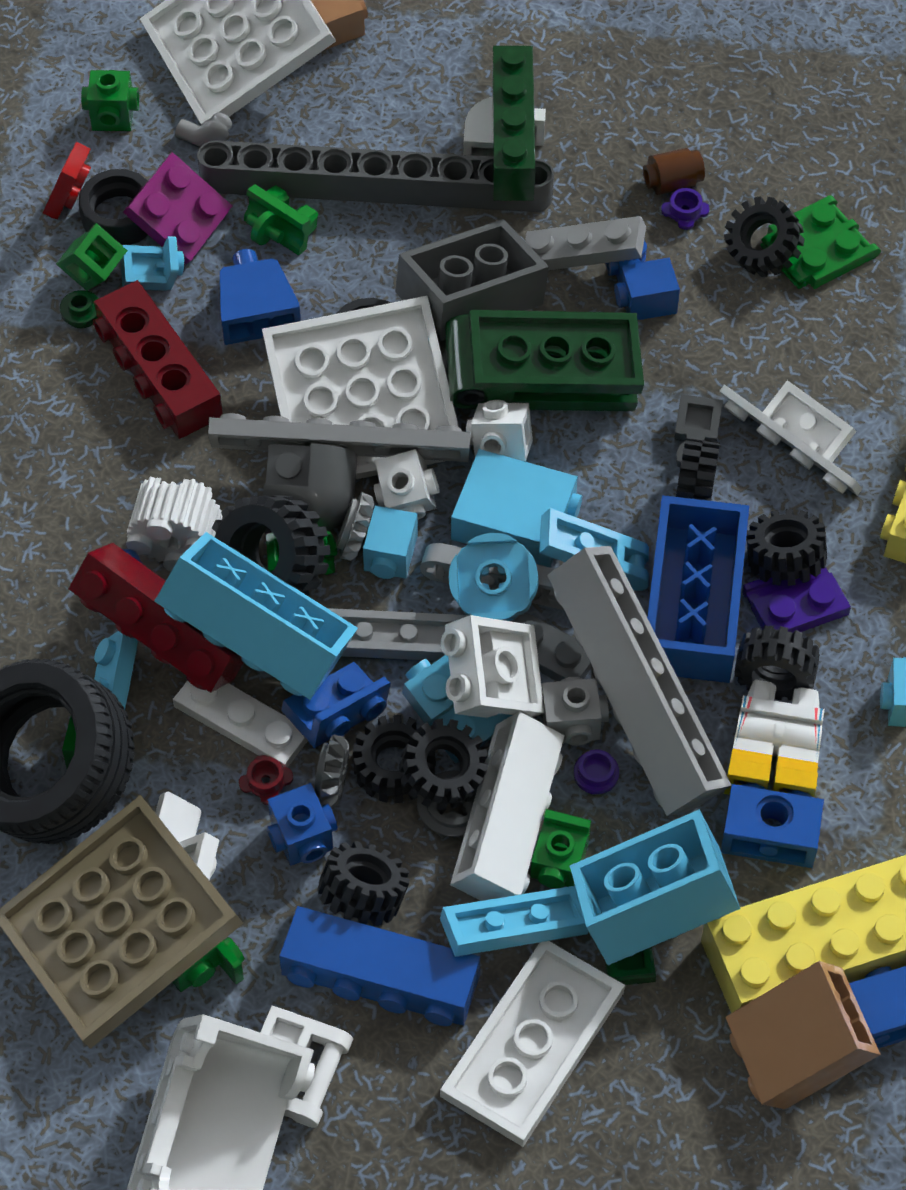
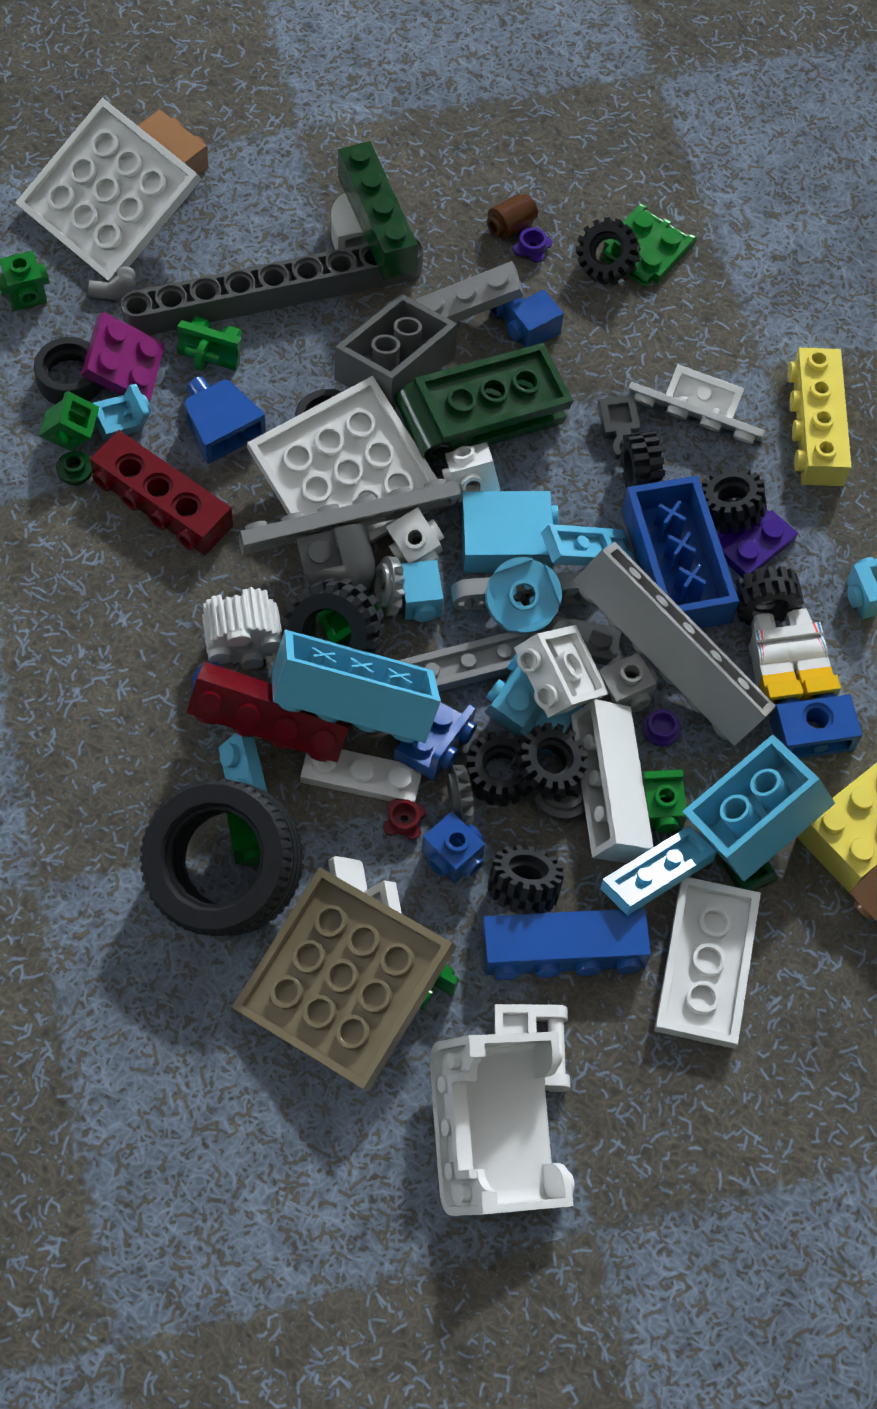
camera: 25 degrees left, 5 degrees up
(69, 182) = (20, 360): red plate -> none

